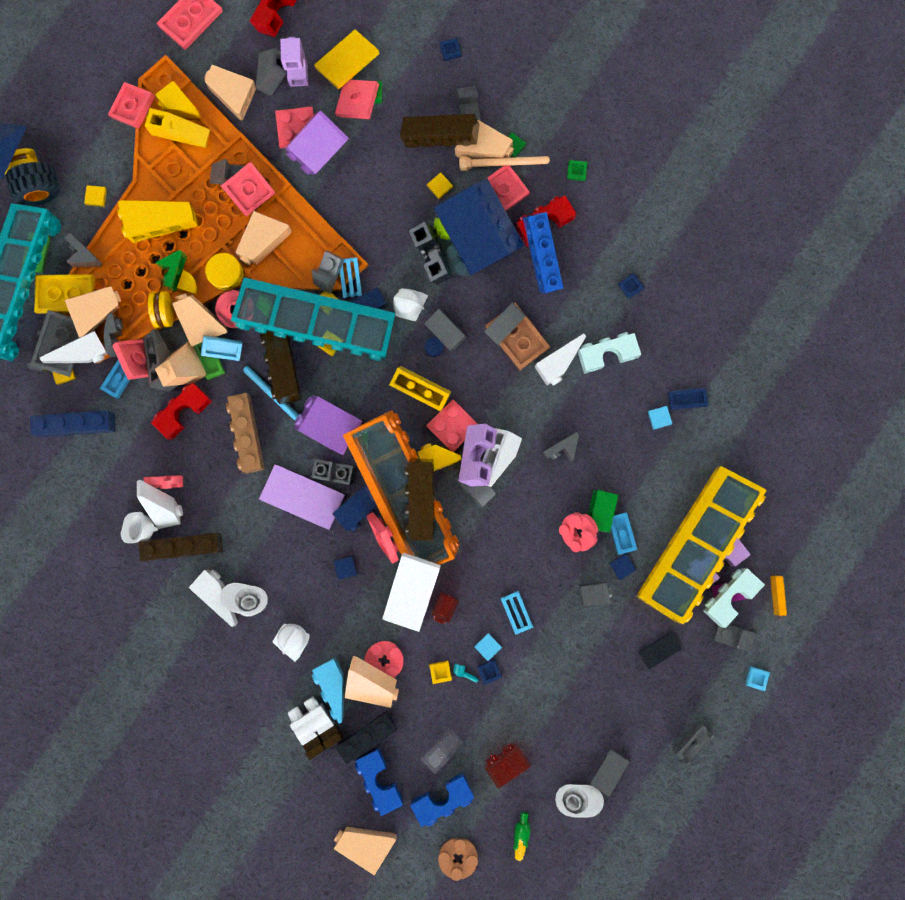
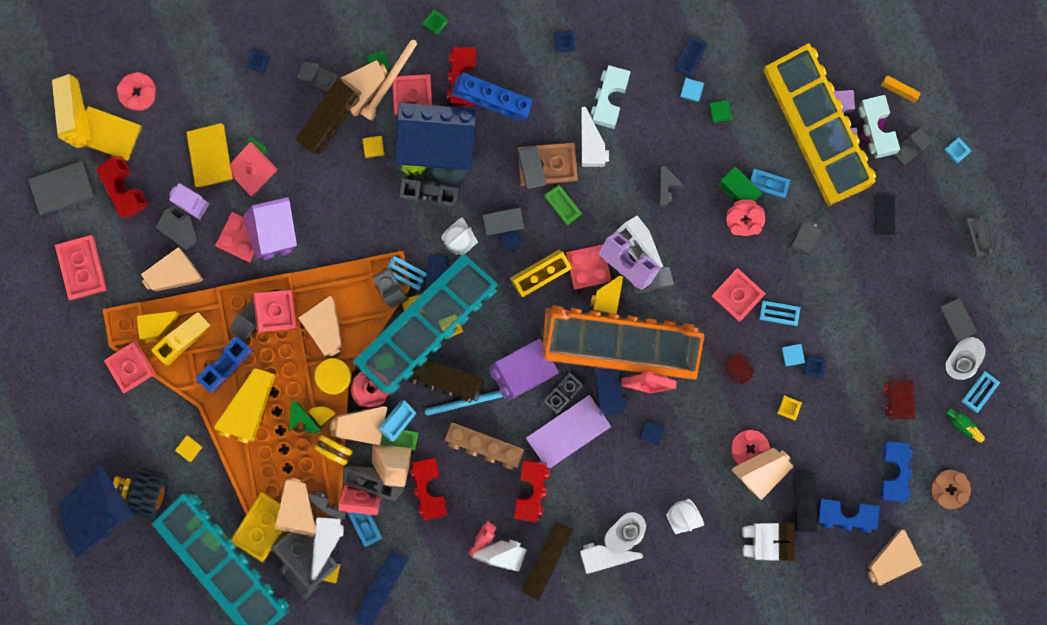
camera: 50 degrees left, 0 degrees up
(82, 255) = (242, 489): dark grey slope -> none
(137, 528) = (506, 588): white piece -> none
(189, 180) = (233, 356): none -> blue arch
(247, 491) = (529, 507): none -> red arch
(331, 680) = (740, 502): medium azure slope -> none
(411, 592) = (708, 388): white tile -> none
(421, 499) = (637, 329): dark brown brick -> none
(441, 750) = (854, 446): clear slope -> none
(459, 671) = (798, 391): teal hand -> none
(491, 371) = (563, 205): none -> bright green tile
(509, 567) = (738, 295): none -> coral plate
(542, 837) = (971, 404): none -> medium azure tile
(622, 566) = (796, 201): dark blue tile -> none
(657, 453) = (720, 111): none -> green tile

